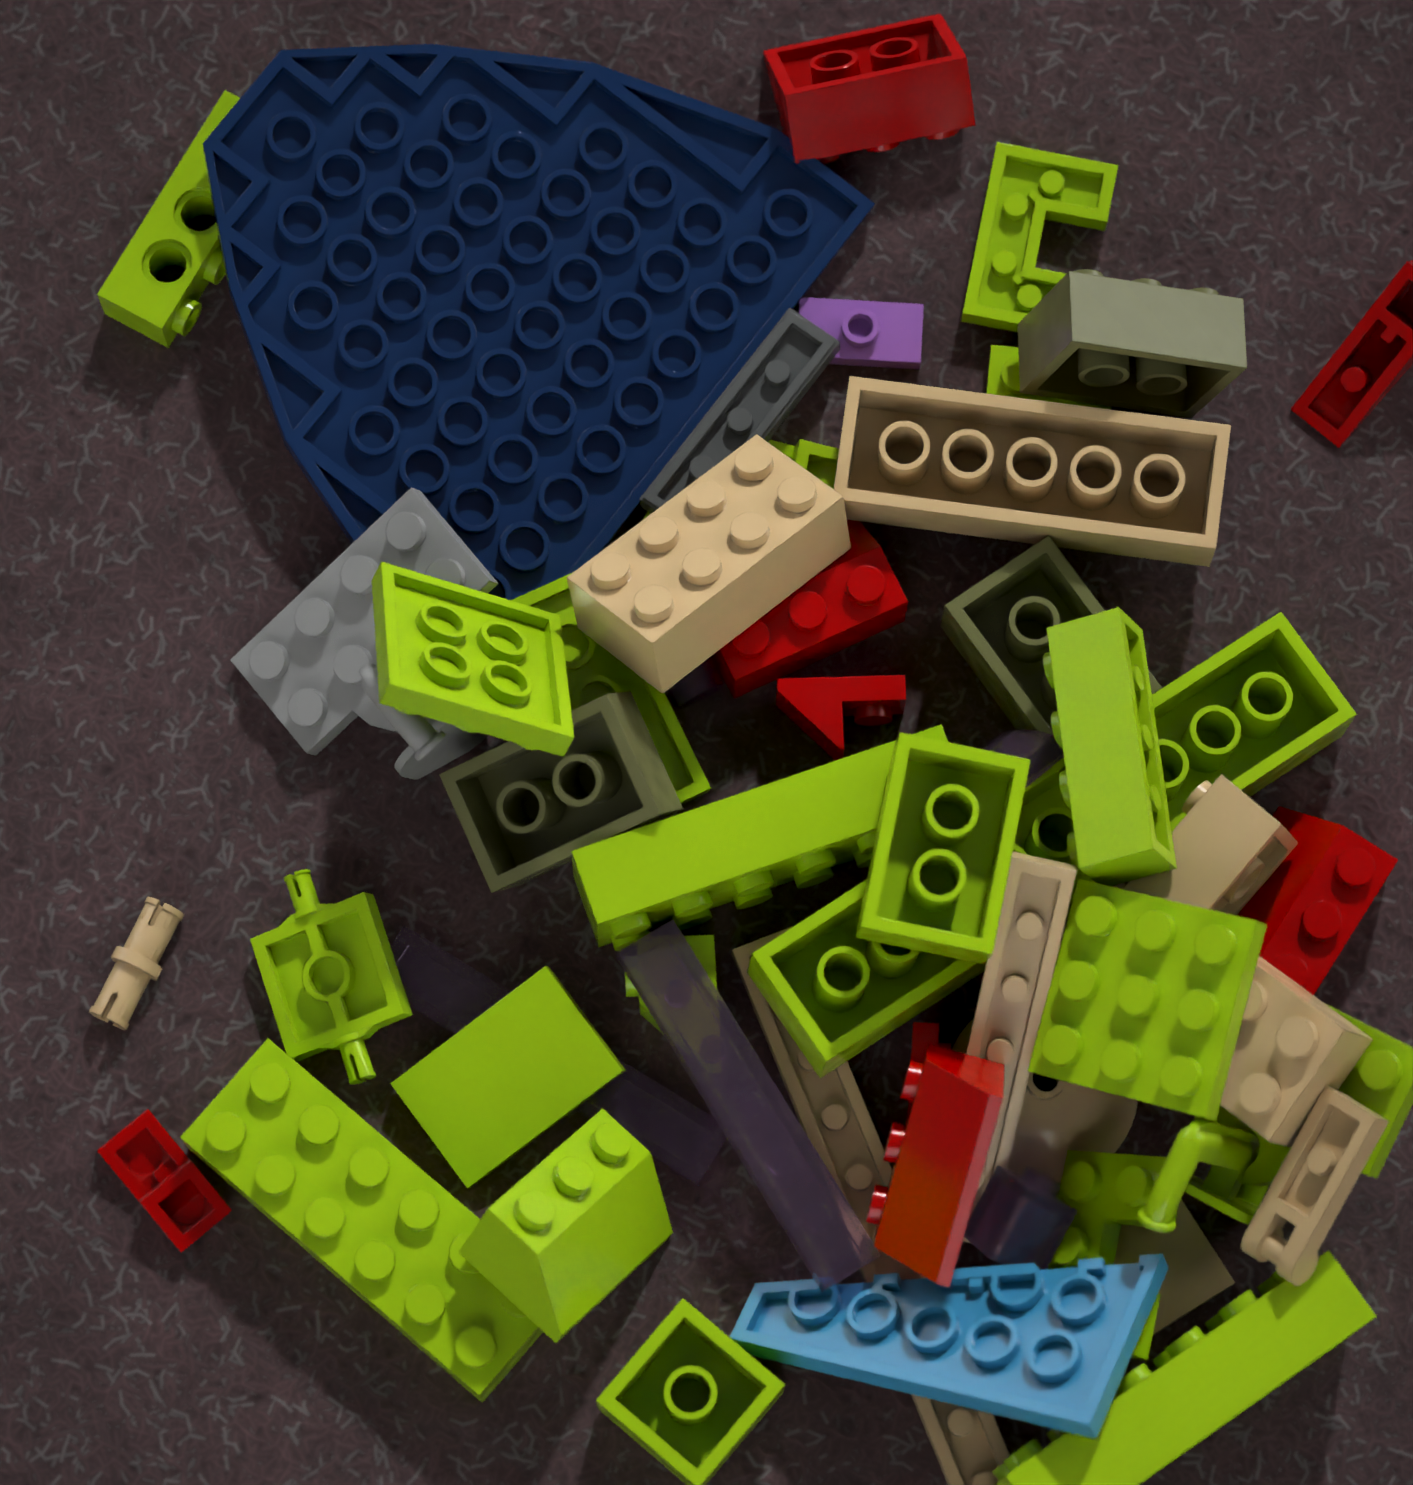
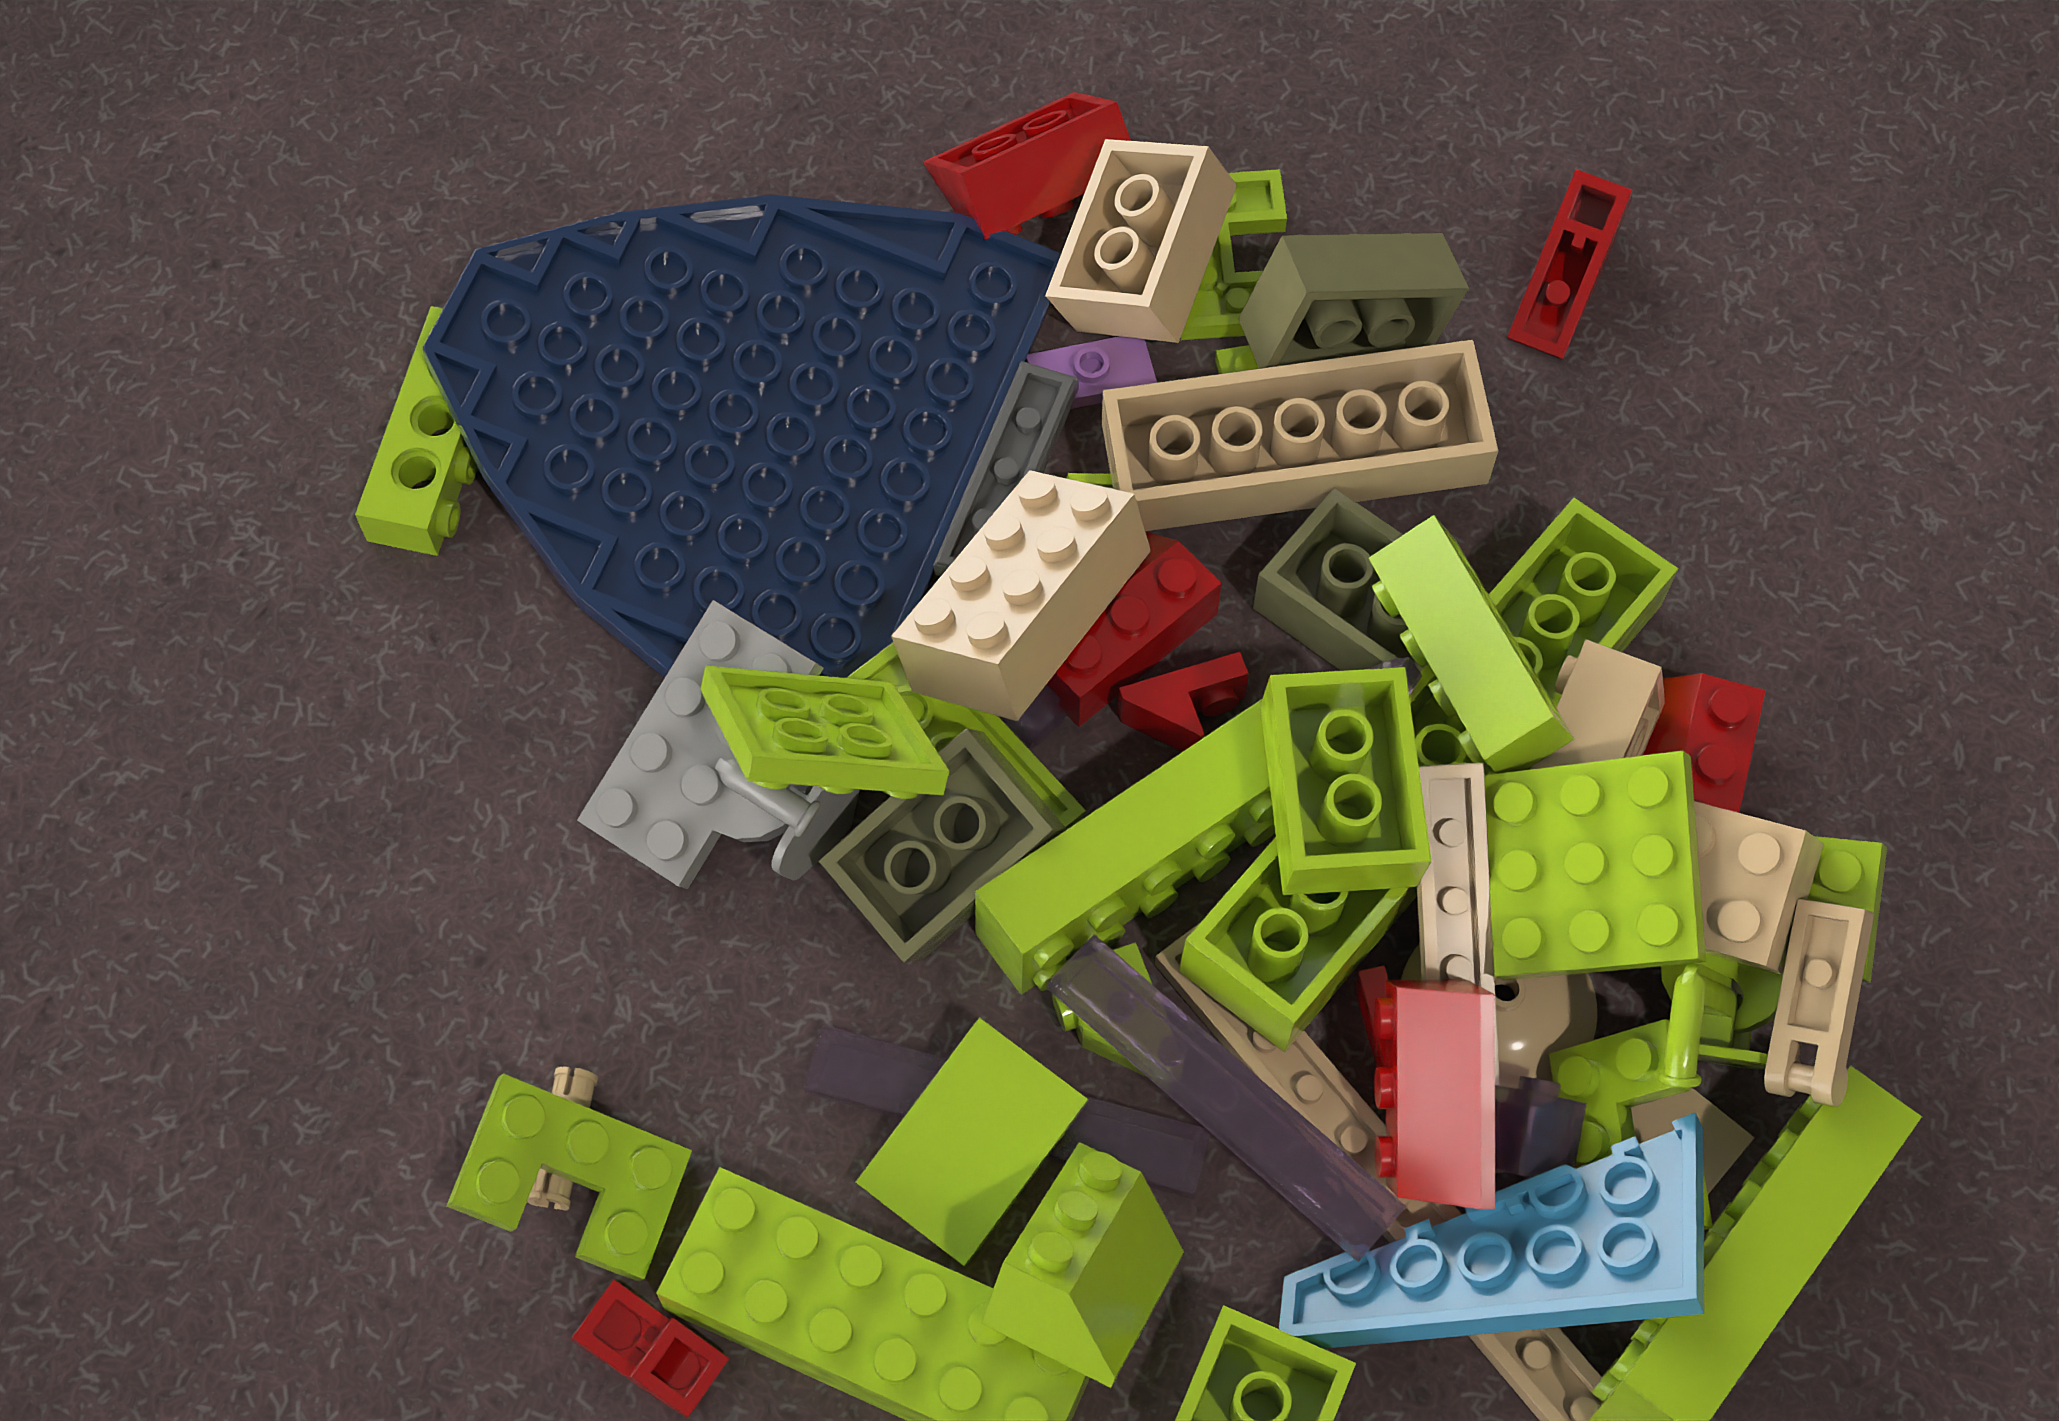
camera: 15 degrees left, 10 degrees down
(112, 954) = (539, 1130): none -> lime plate
(330, 976) = (764, 1093): lime plate -> none
(946, 214) = (1141, 240): none -> tan brick

